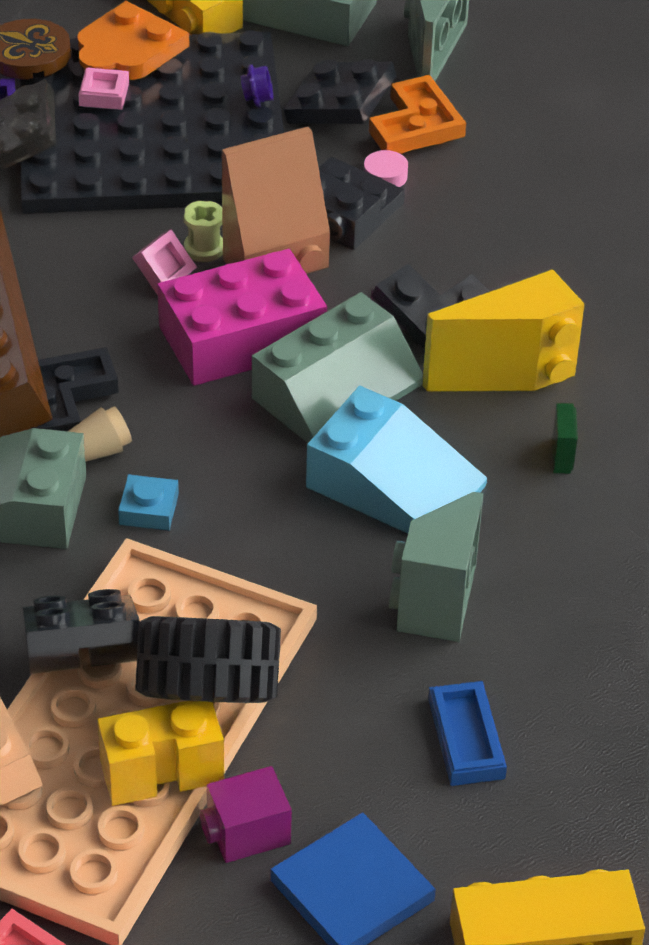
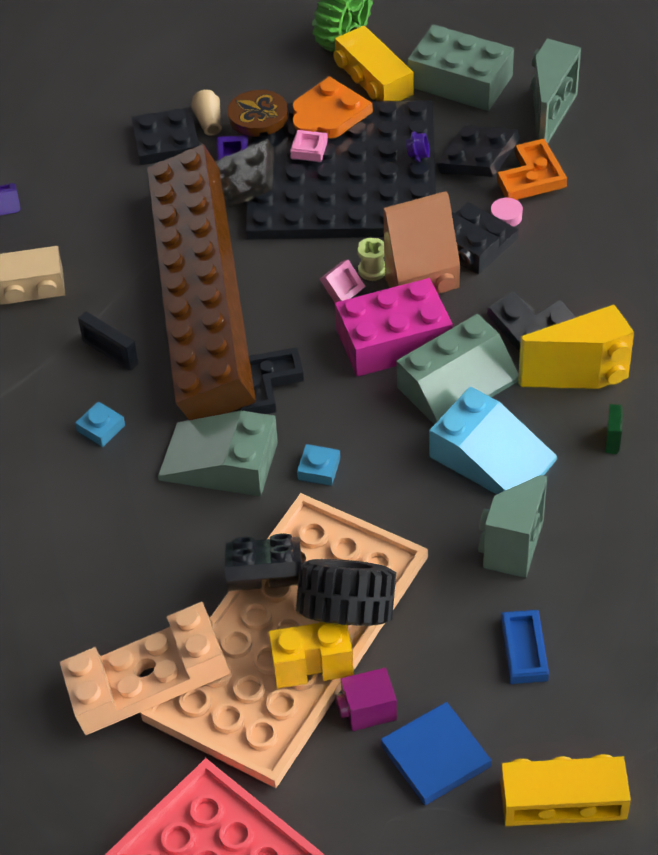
camera: 10 degrees right, 5 degrees up
(103, 433) = (289, 413): tan cone -> none

